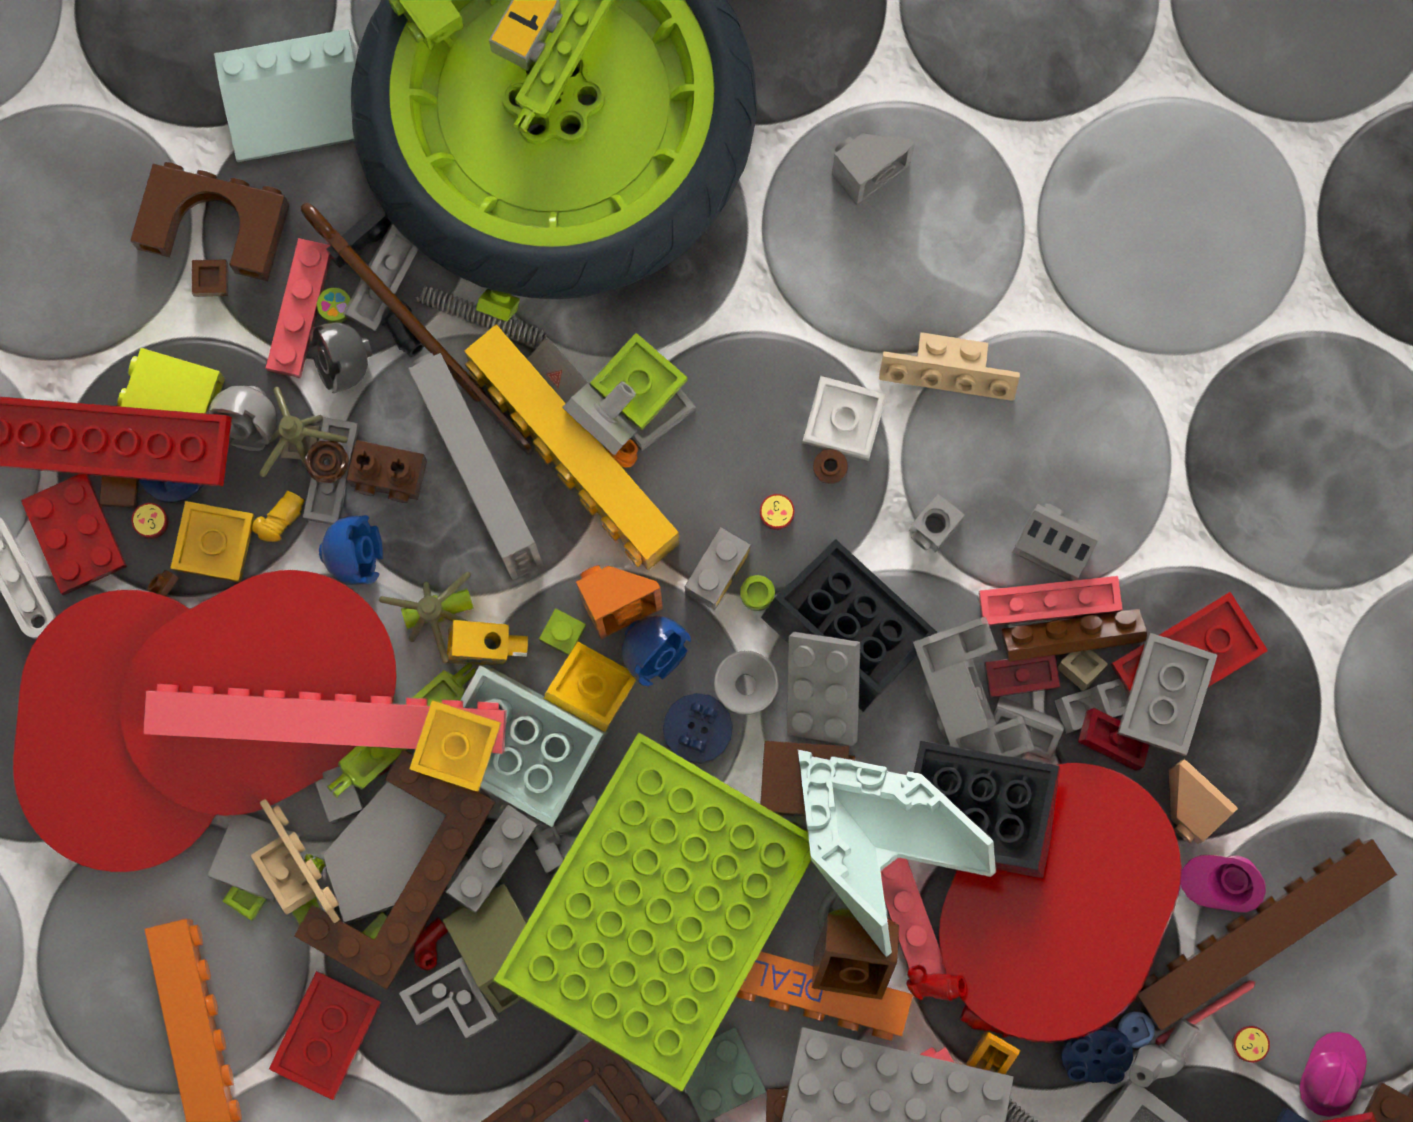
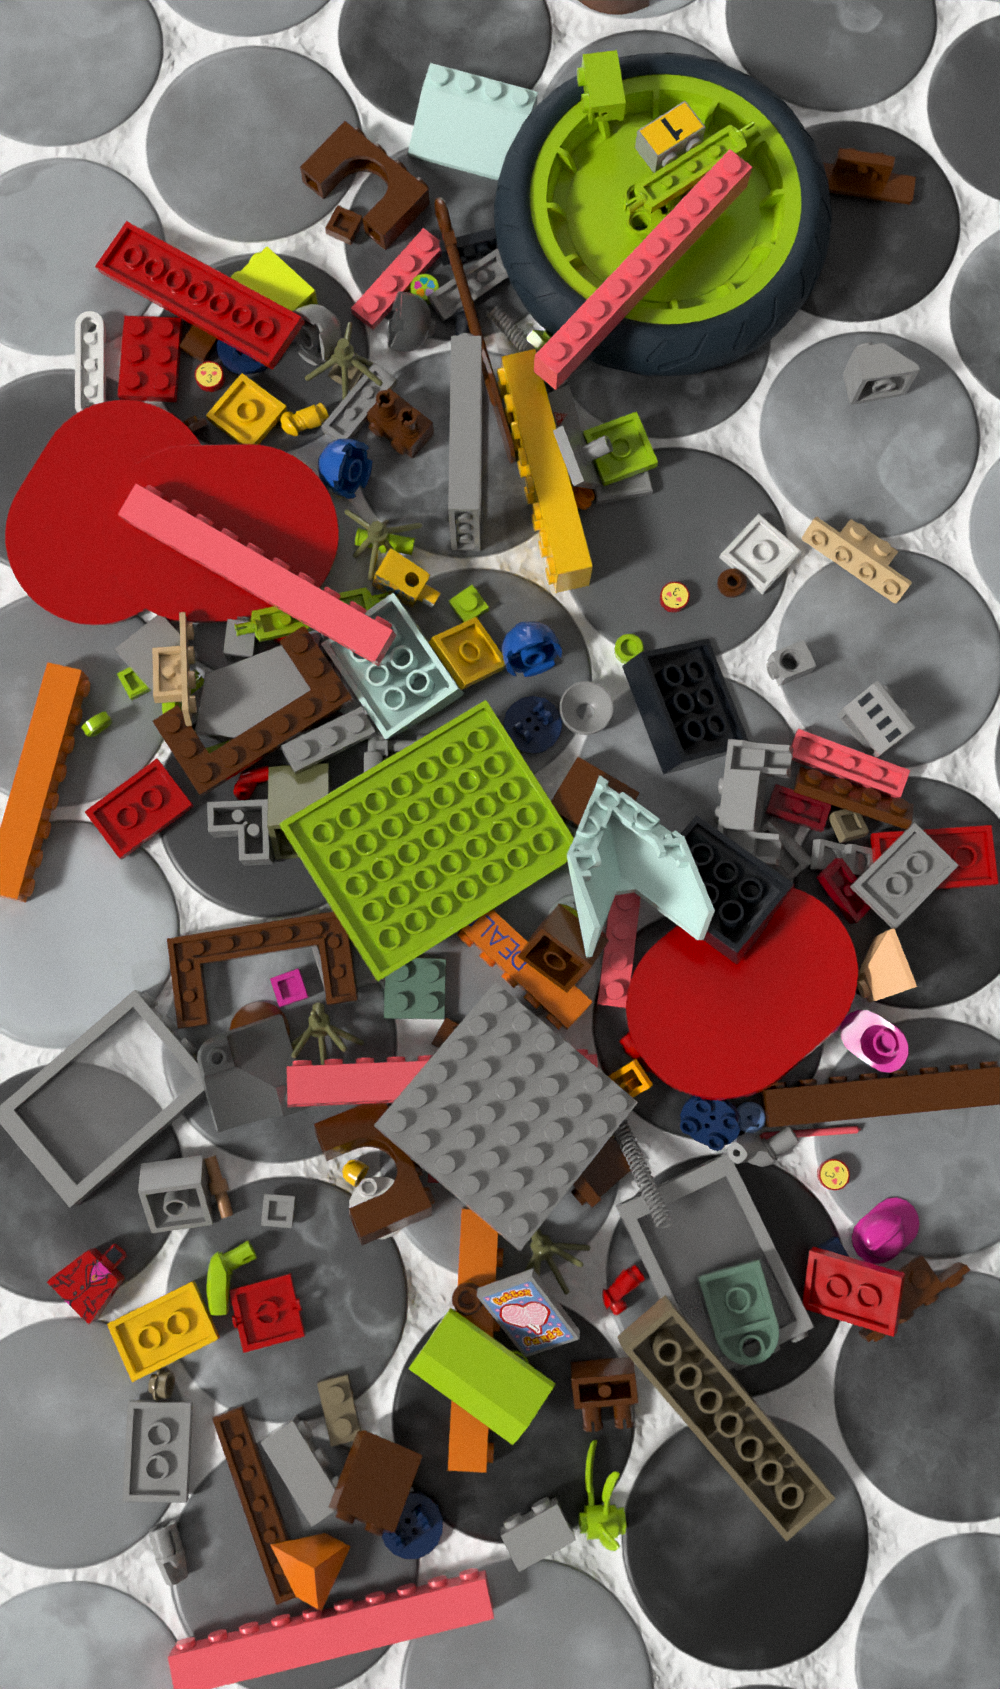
camera: 25 degrees right, 0 degrees up
(231, 967) = (97, 724): none -> lime tile
(319, 453) = (358, 384): reddish brown plate -> none
(455, 745) = (342, 636): yellow plate -> none
(570, 188) = (642, 269): none -> coral brick
(617, 598) = (522, 591): orange slope -> none
(717, 568) = (608, 614): light grey brick -> none
(823, 688) = (642, 739): light grey plate -> none
(935, 985) = (613, 1003): red arm -> none

